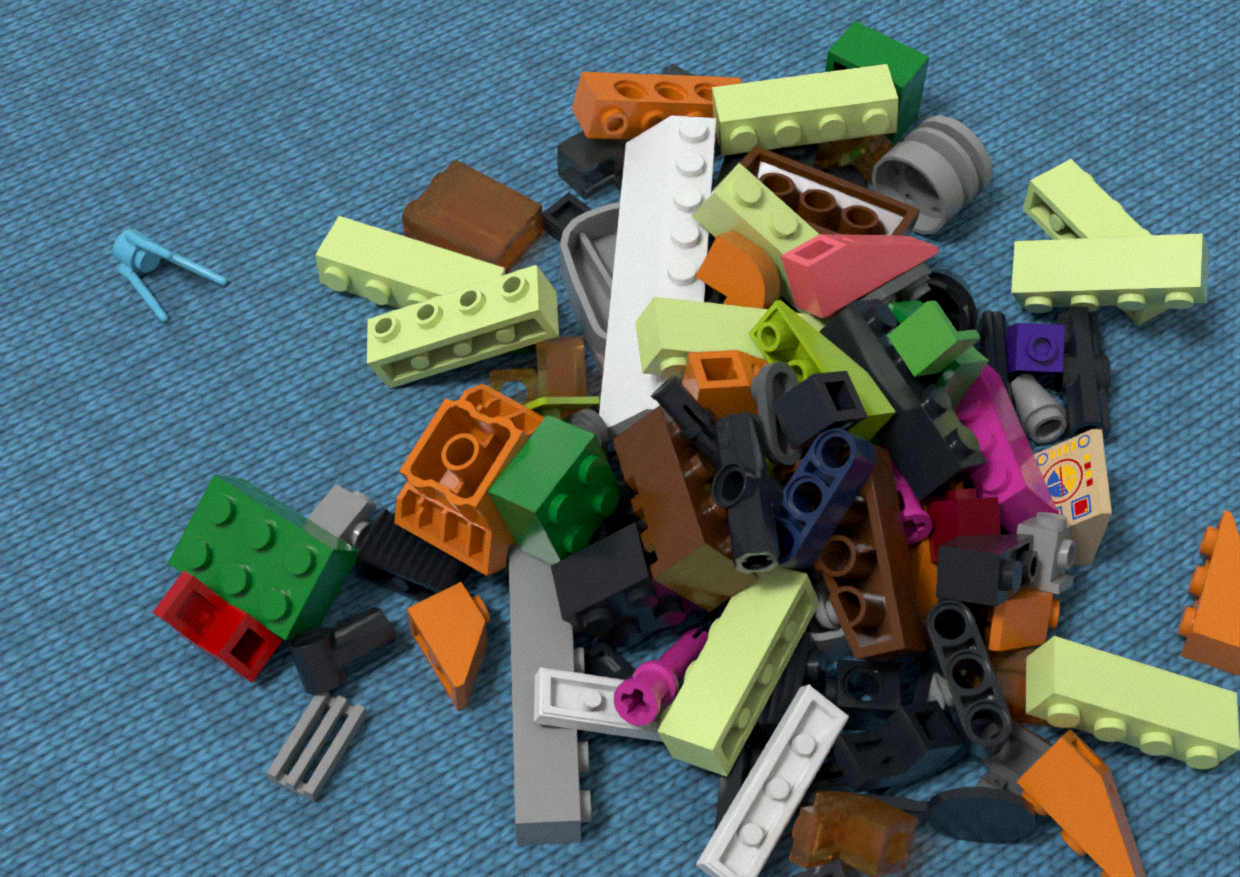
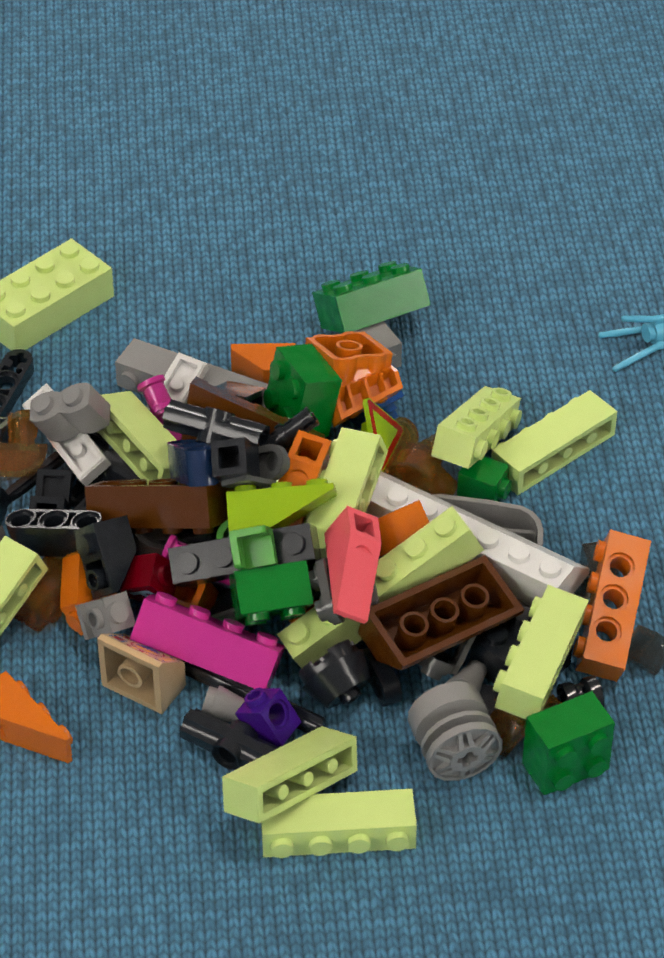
camera: 120 degrees right, 10 degrees down
(217, 627) = (355, 258): red brick -> none
(320, 702) = (256, 301): light grey tile -> none
(328, 653) = (295, 316): black piece -> none
(474, 217) = (580, 486): clear orange brick -> none
(561, 213) = (563, 542): black tile -> none
(780, 761) = (70, 412): none -> light grey brick

